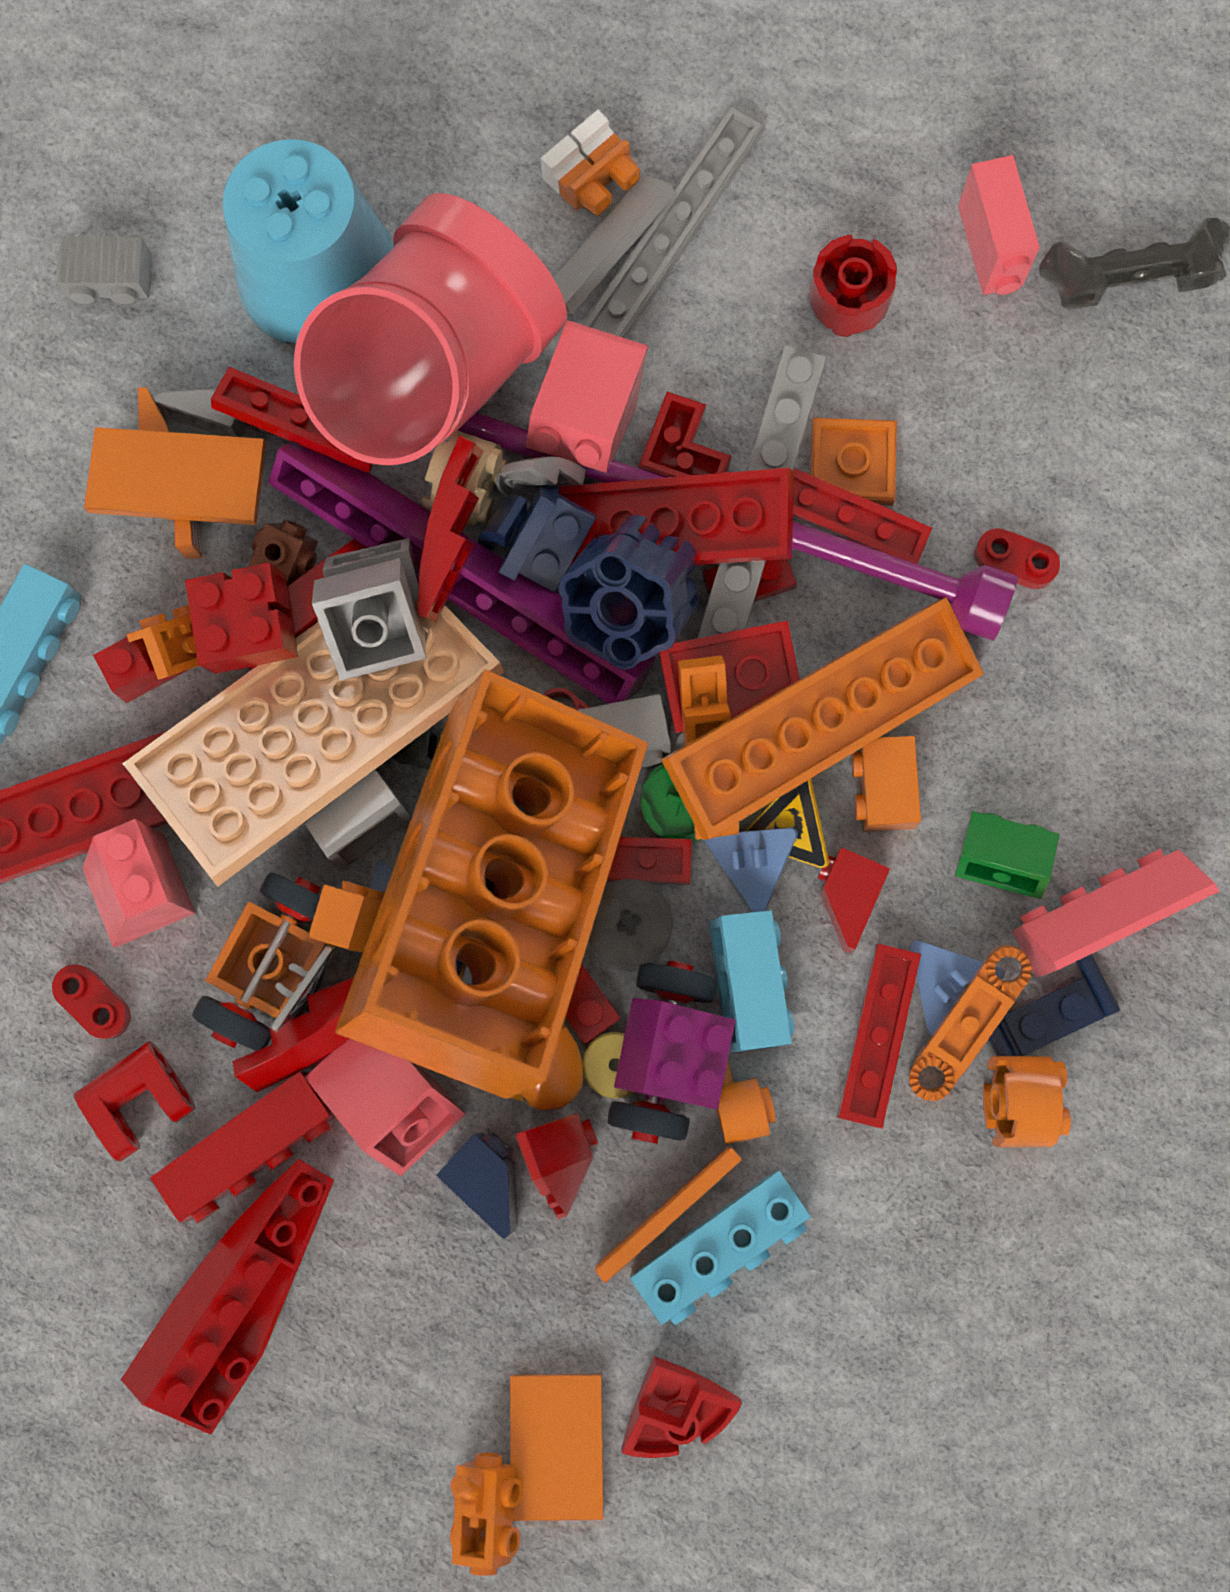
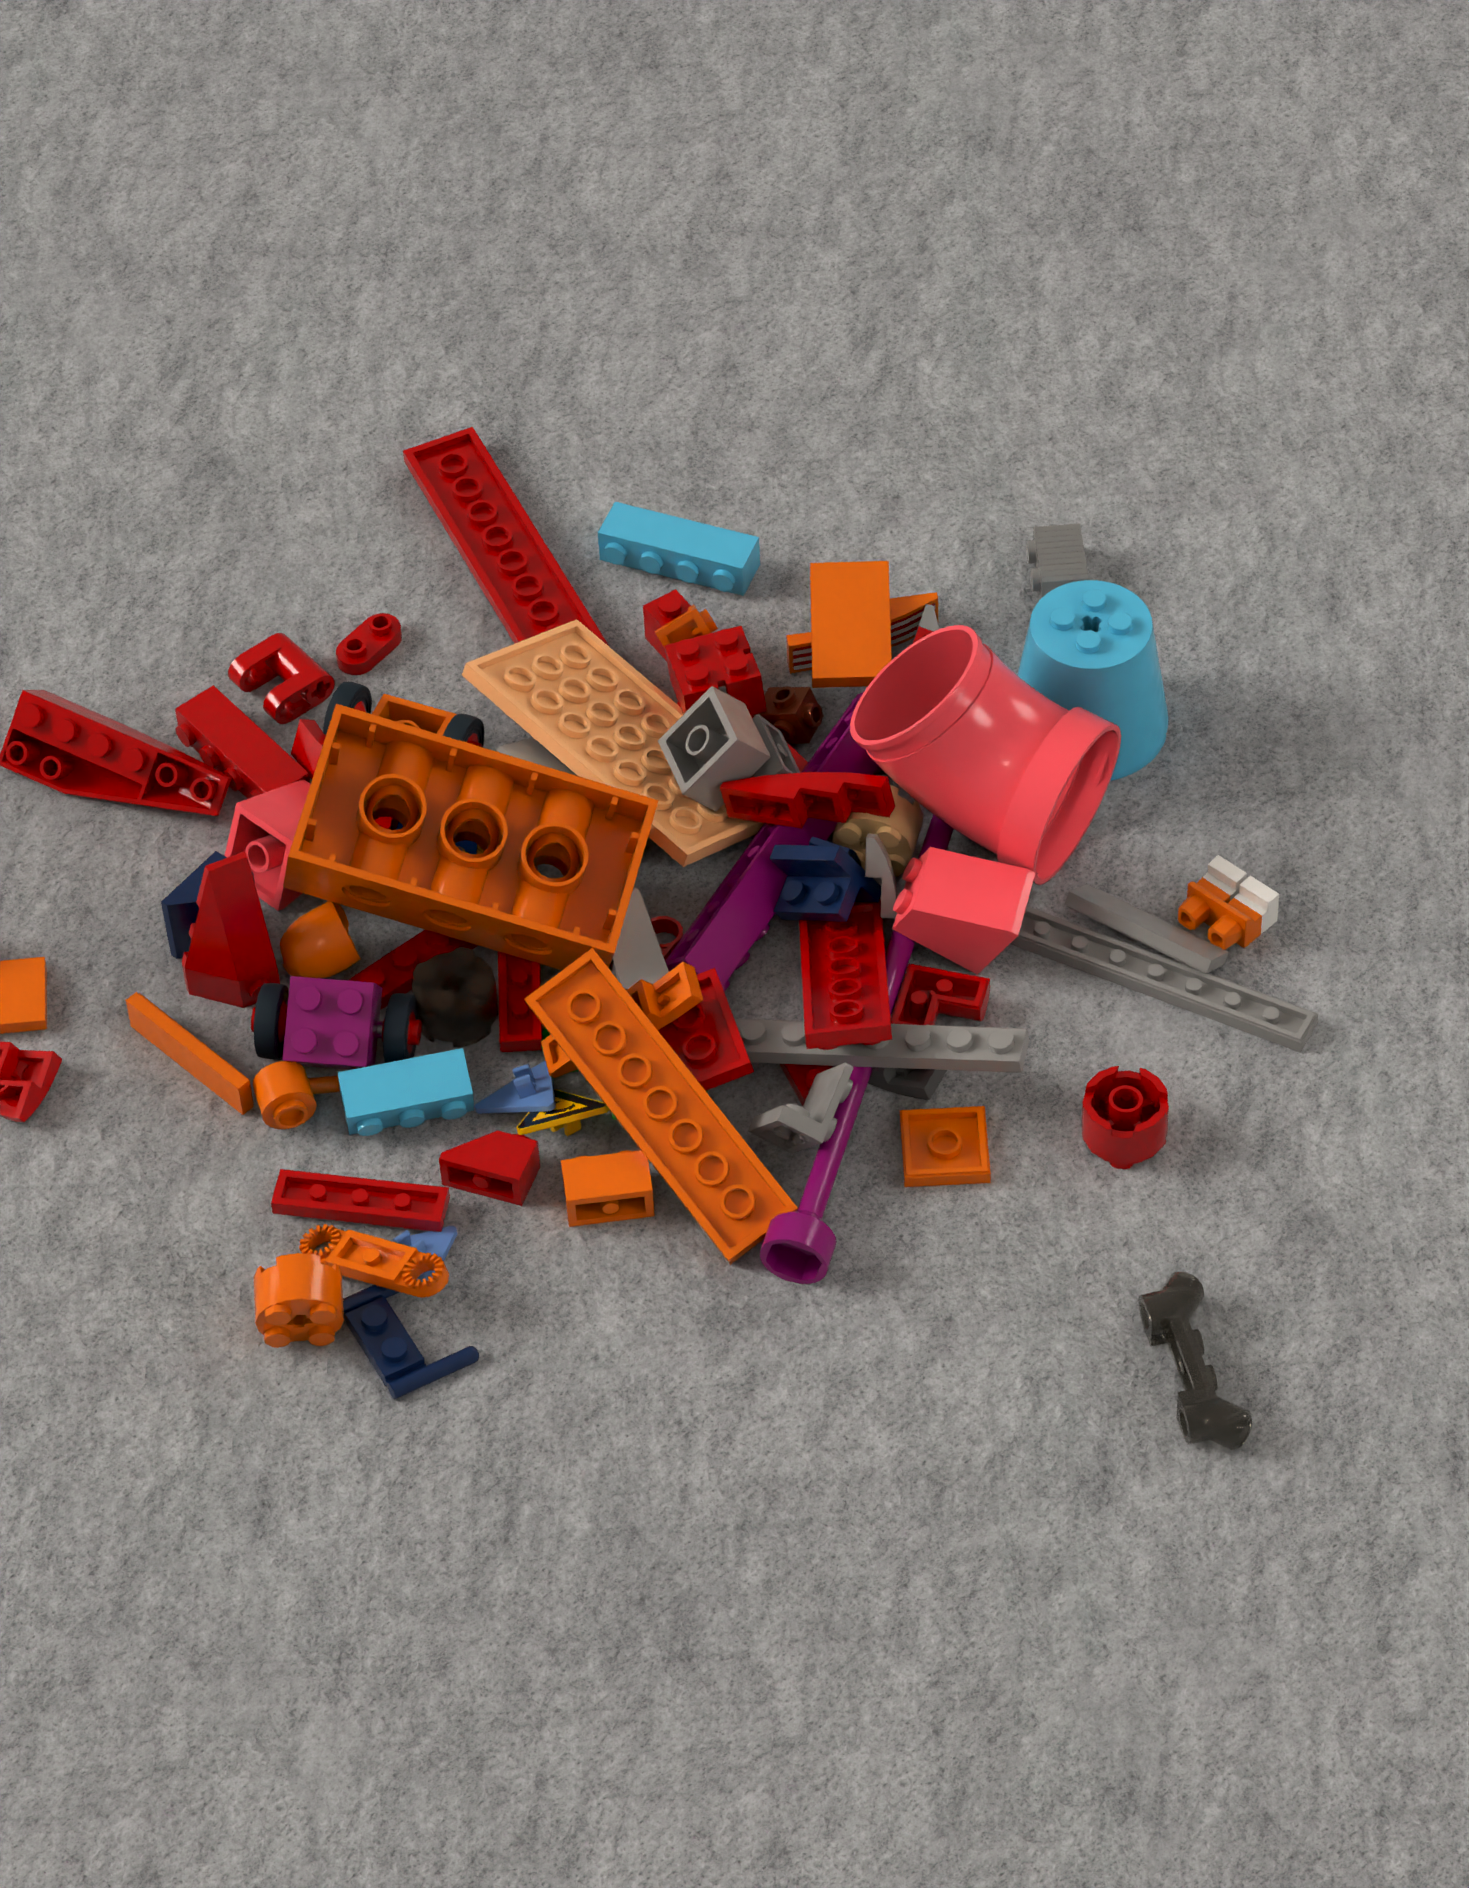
camera: 80 degrees right, 30 degrees down
(135, 882) = (465, 635): coral slope -> none
(649, 574) = (760, 932): dark blue piece -> none
(719, 1247) = (160, 1093): medium azure brick -> none
(838, 571) = (803, 1127): none -> light grey bracket
(857, 518) = (876, 1137): red plate -> none
(998, 225) = (1204, 1223): coral brick -> none
(1007, 854) = (541, 1279): green brick -> none
(1018, 557) = (857, 1282): red plate -> none
(1112, 911) = (486, 1364): coral slope -> none

